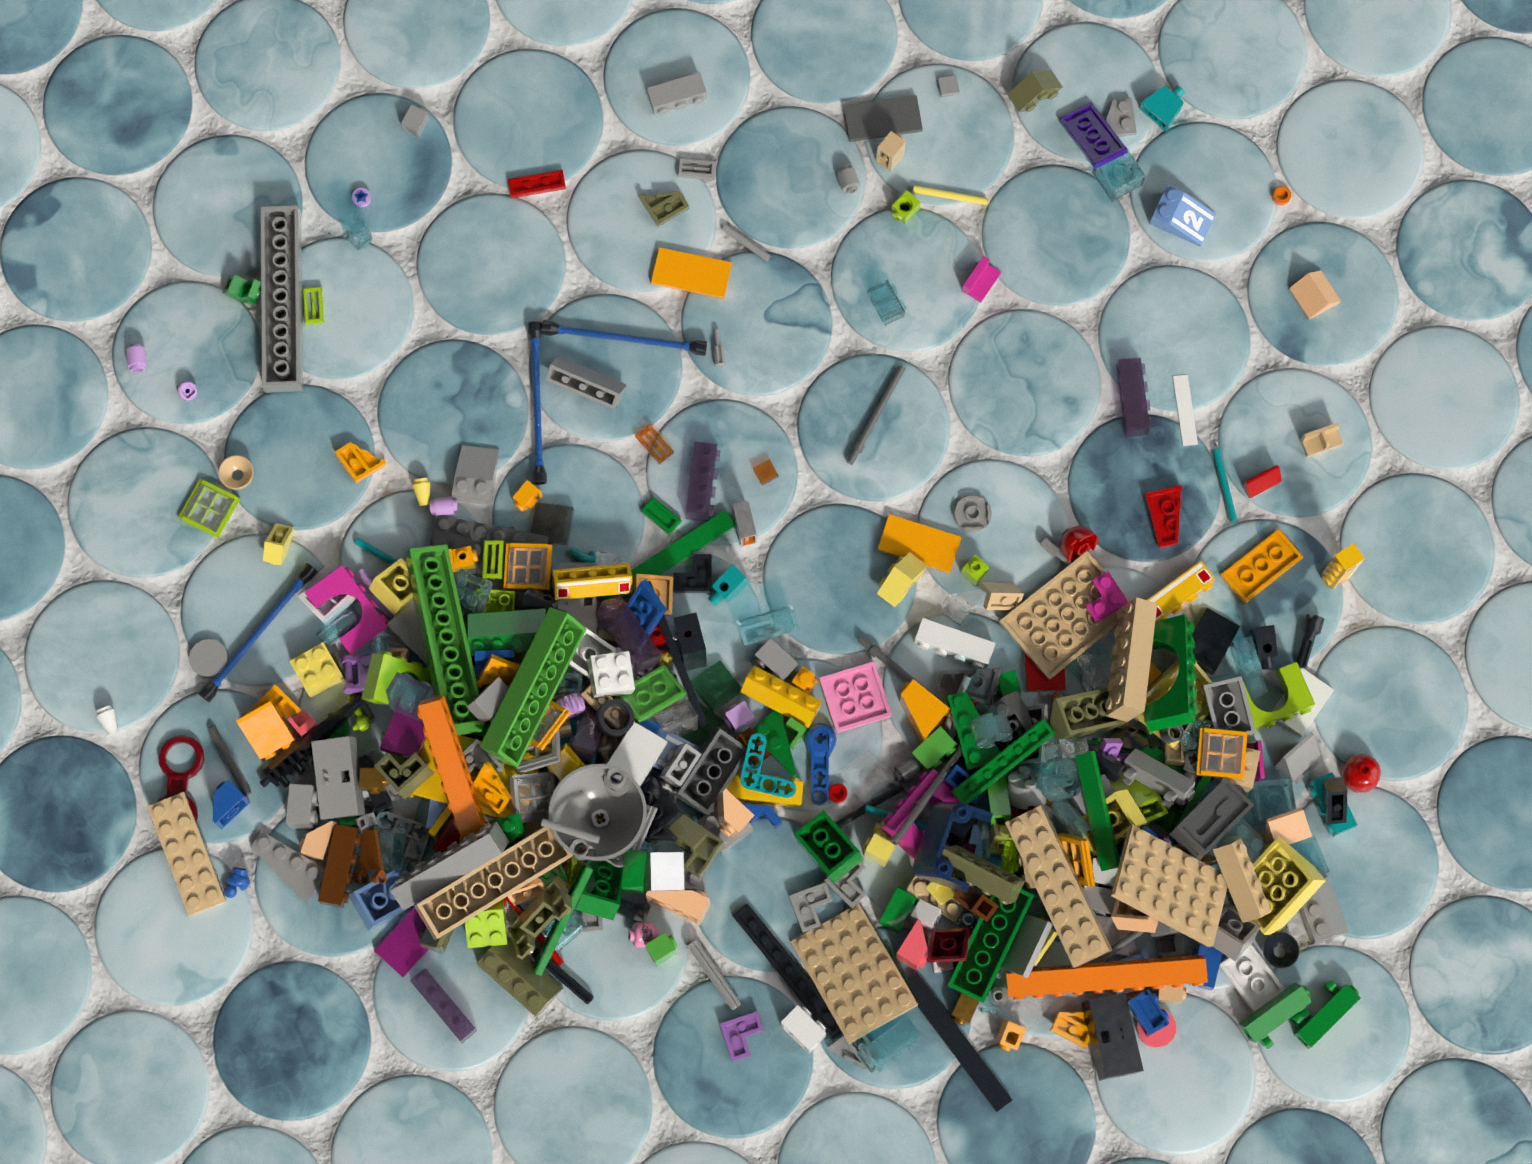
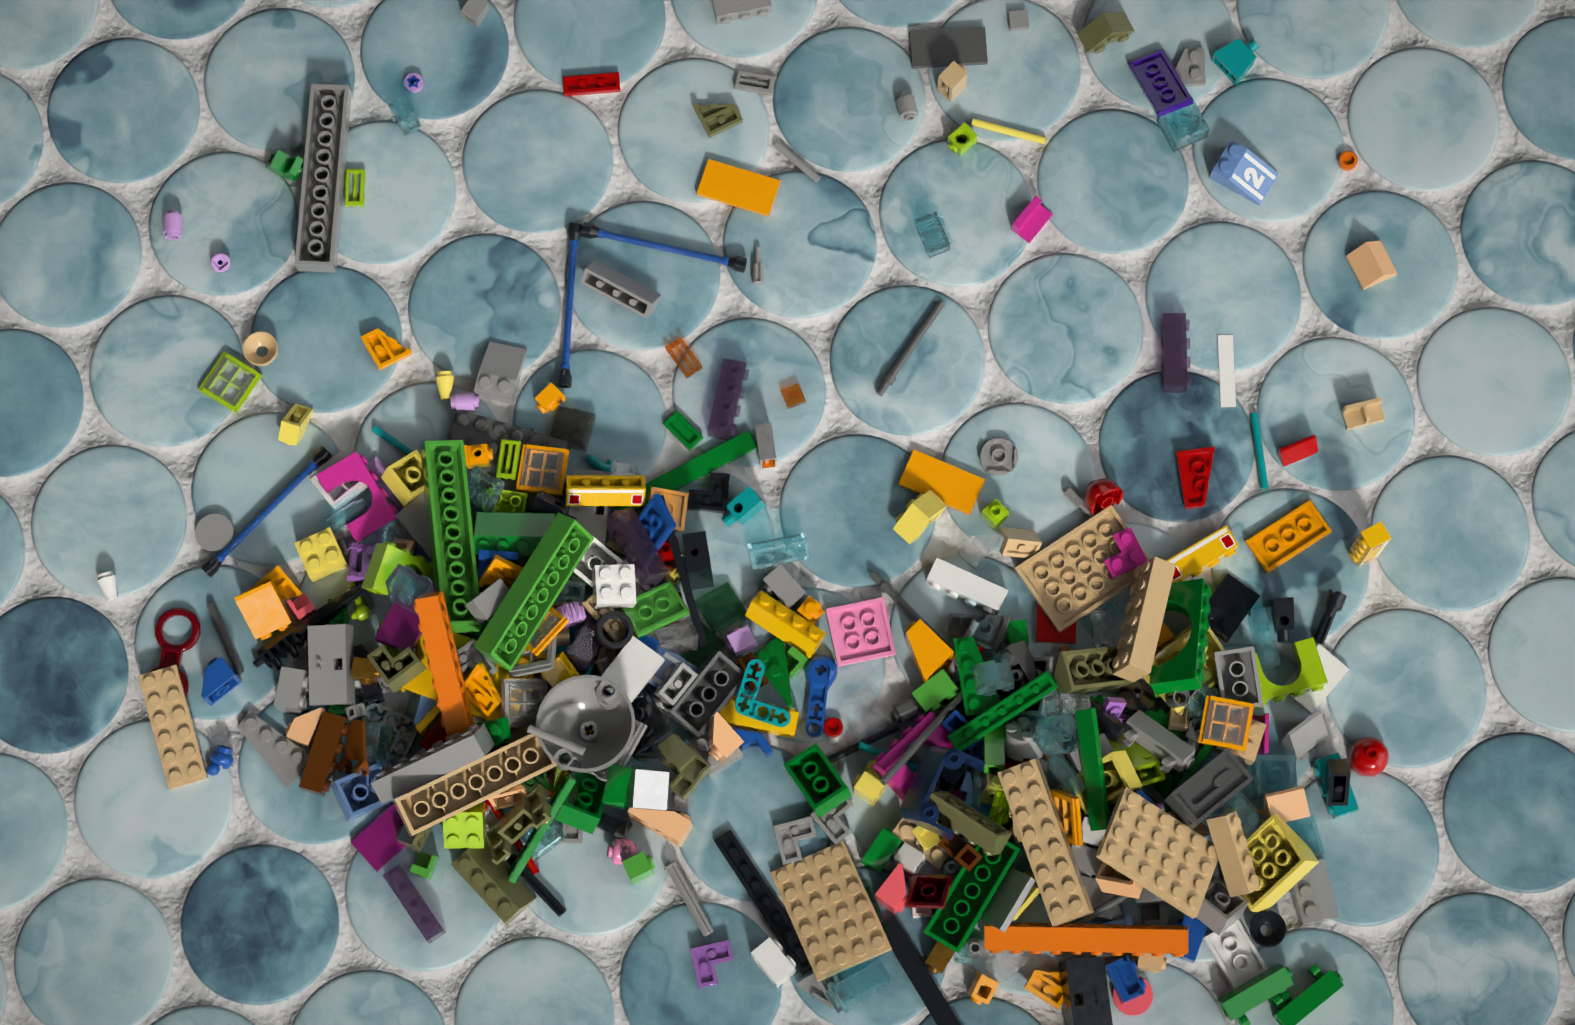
camera: 10 degrees right, 0 degrees up
(449, 967) = (424, 865): none -> bright green panel

